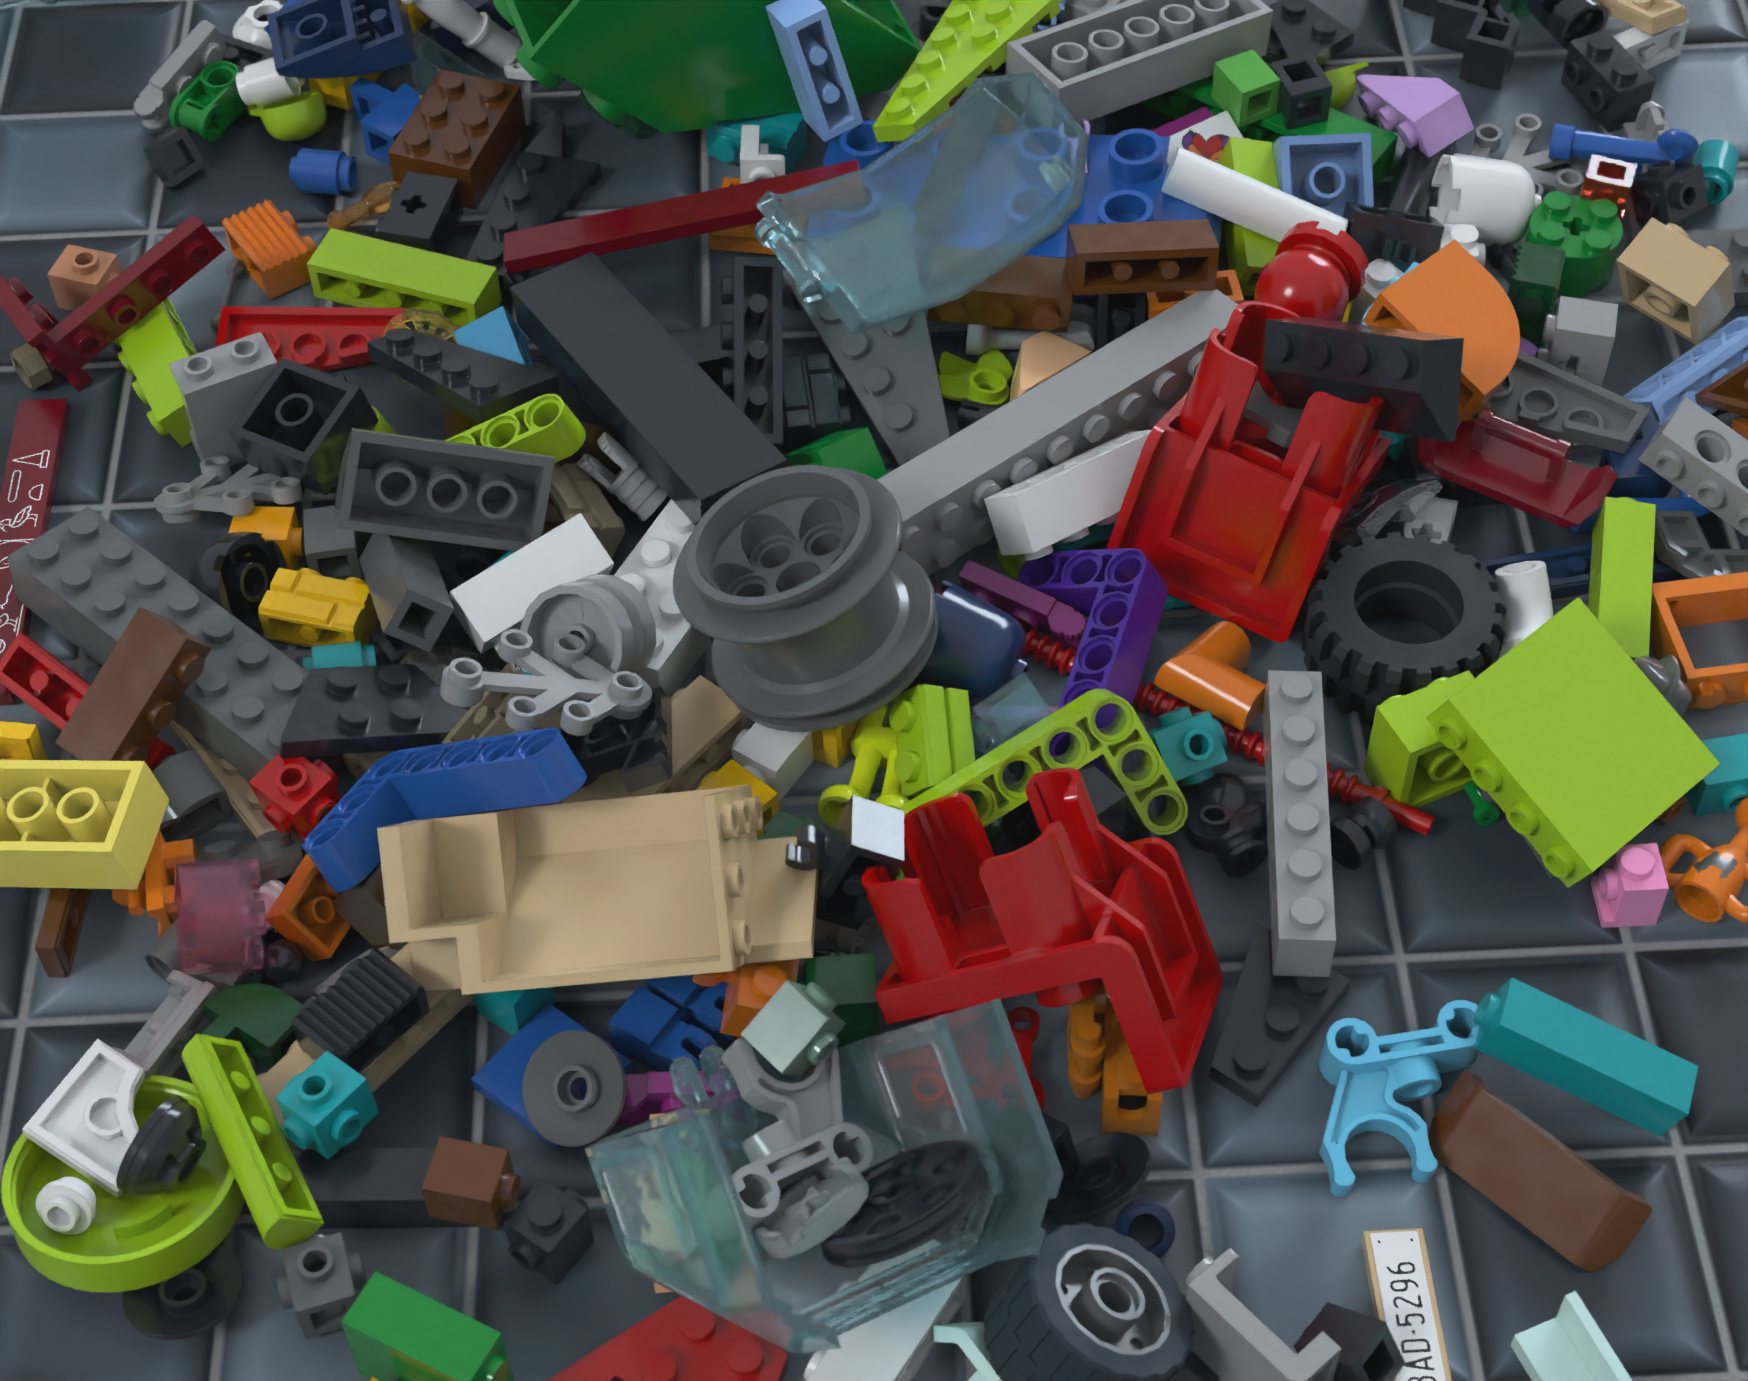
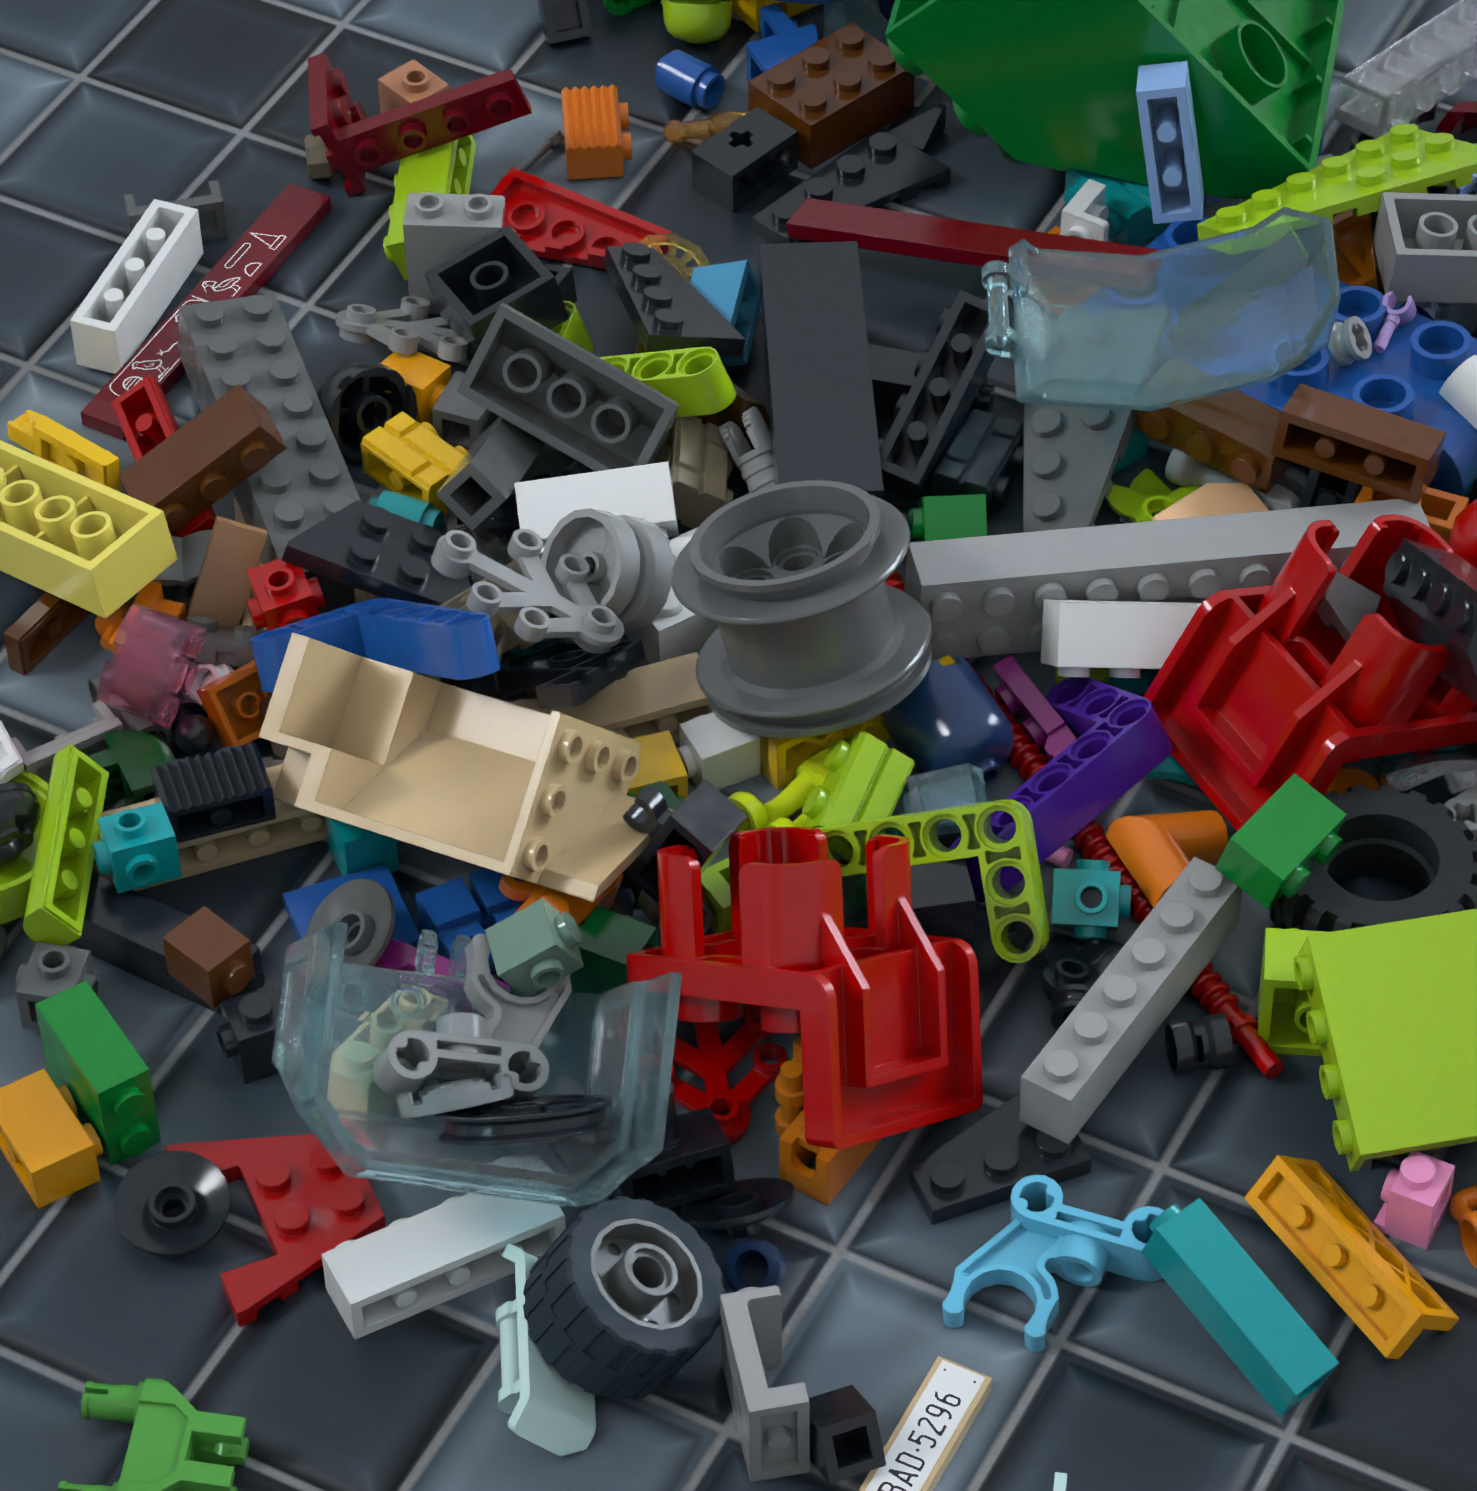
camera: 30 degrees right, 5 degrees down
(219, 790) = (223, 579): none -> medium nougat tile
(393, 275) = (687, 201): lime brick -> none
(1342, 625) = (1281, 842): none -> green brick
(1534, 1176) = (1126, 1388): reddish brown piece -> none
(1612, 963) = (1348, 1255): none -> light orange fence

